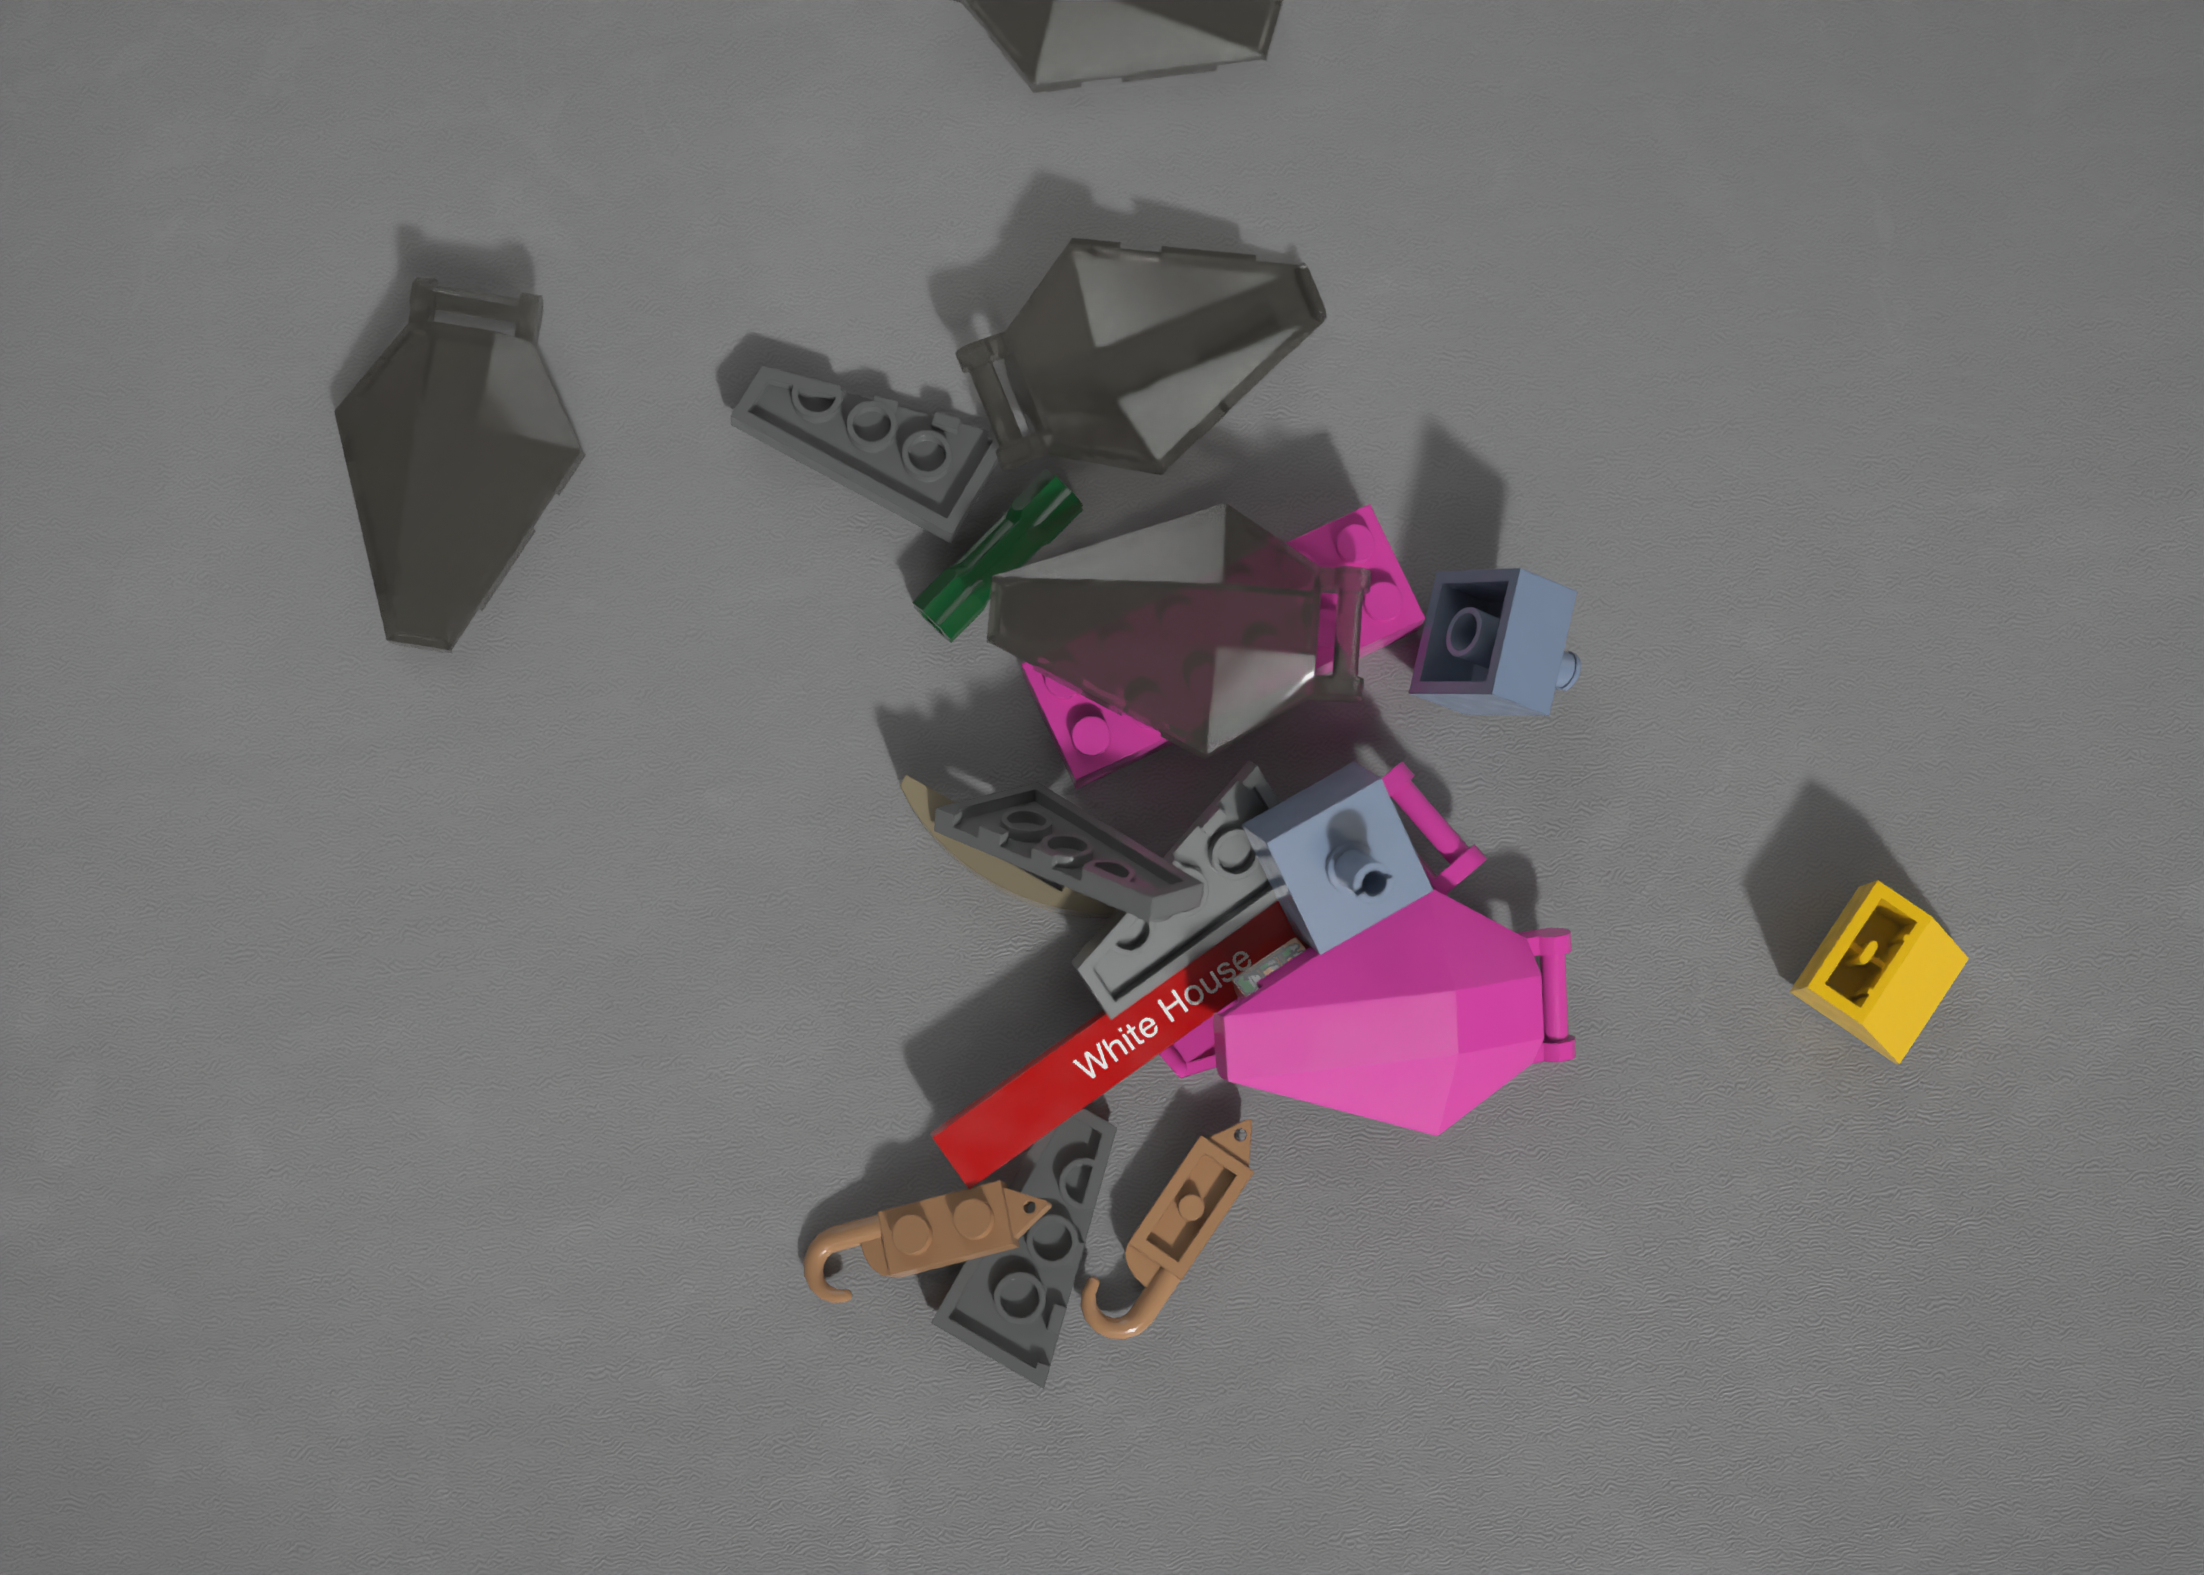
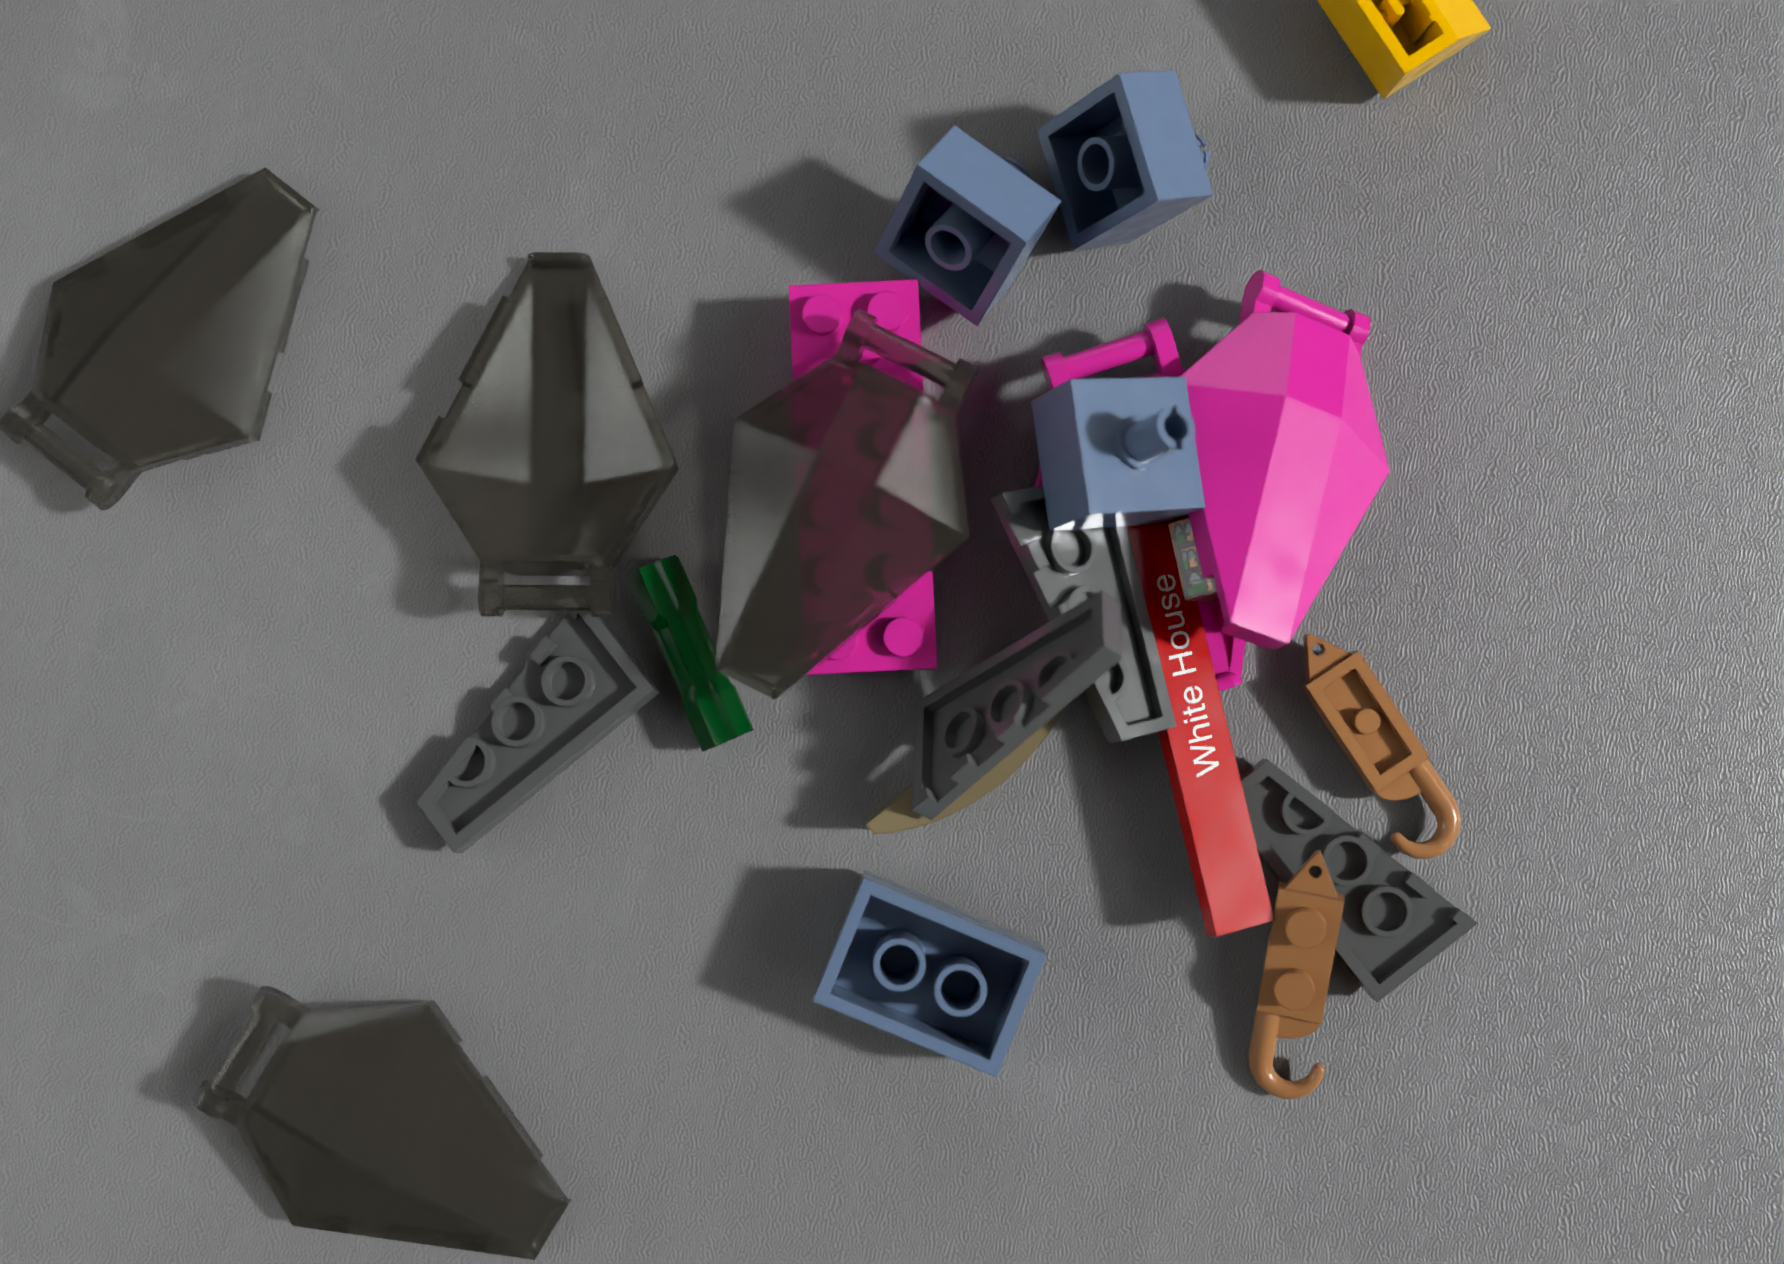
camera: 70 degrees left, 5 degrees up
(792, 888) = (930, 973): none -> sand blue brick
(1618, 765) = (1125, 159): none -> sand blue brick

